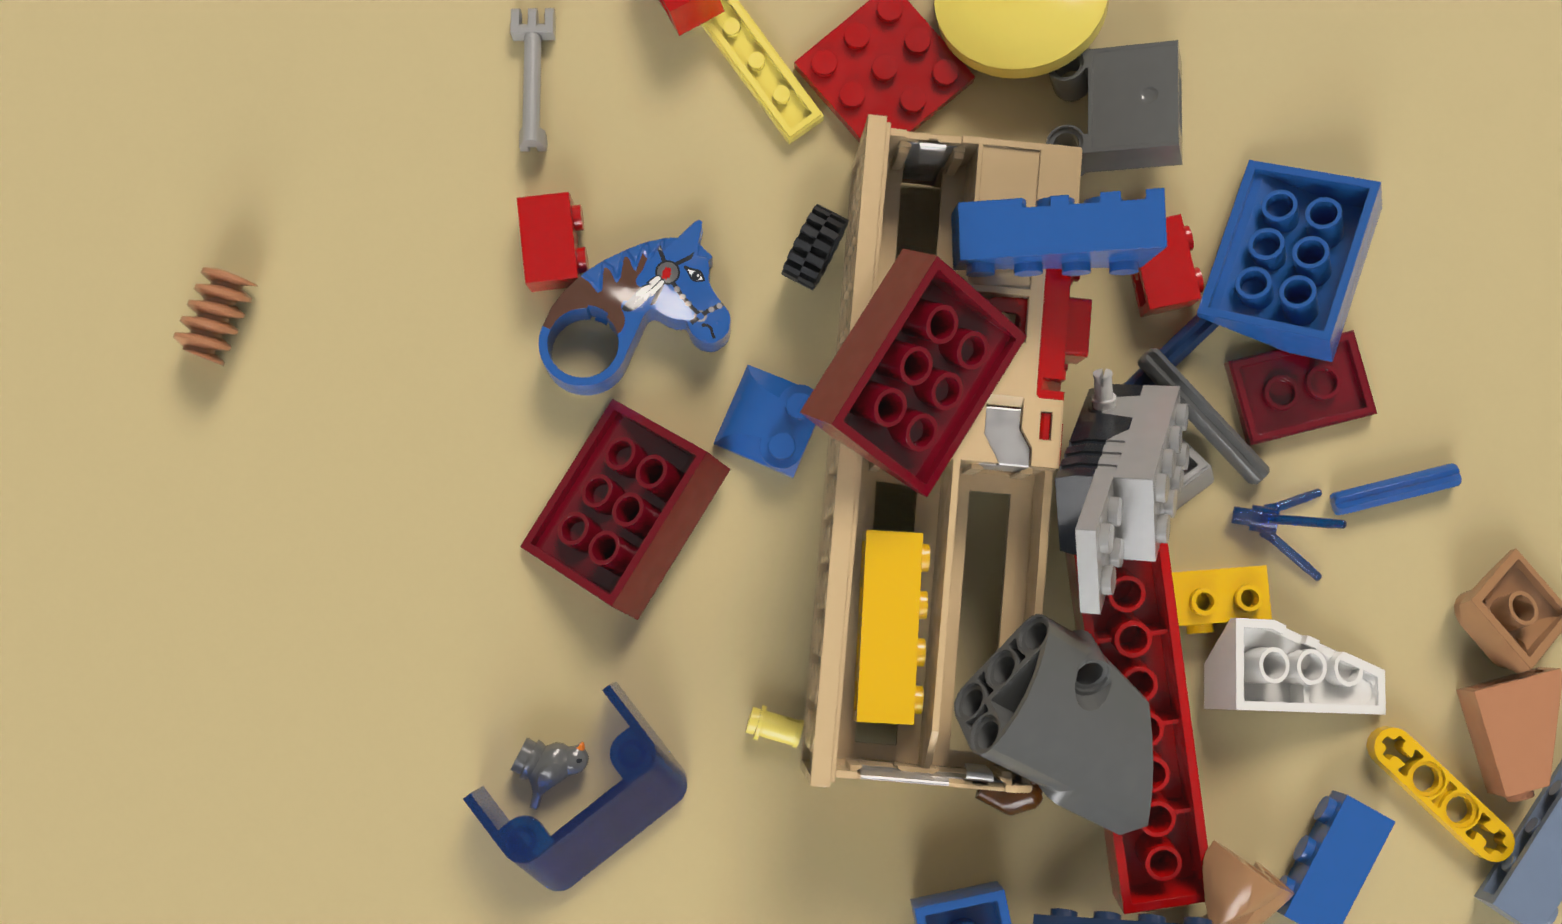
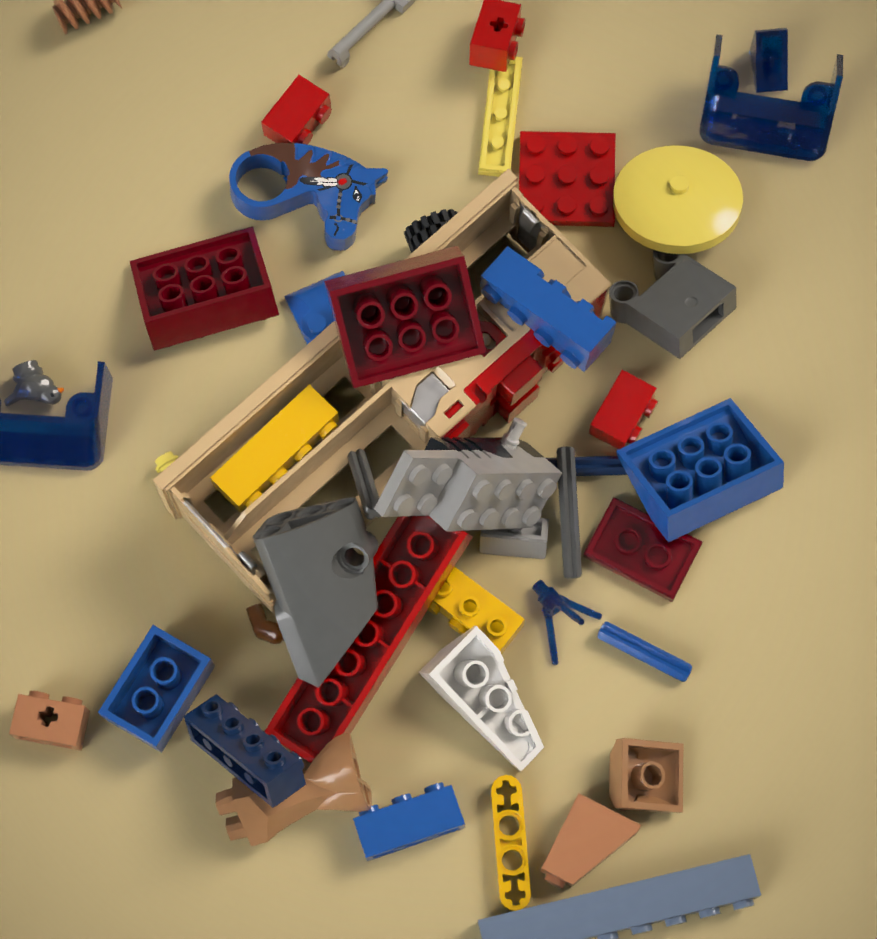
camera: 45 degrees right, 10 degrees down
(1020, 583) = (364, 482): none -> dark grey axle

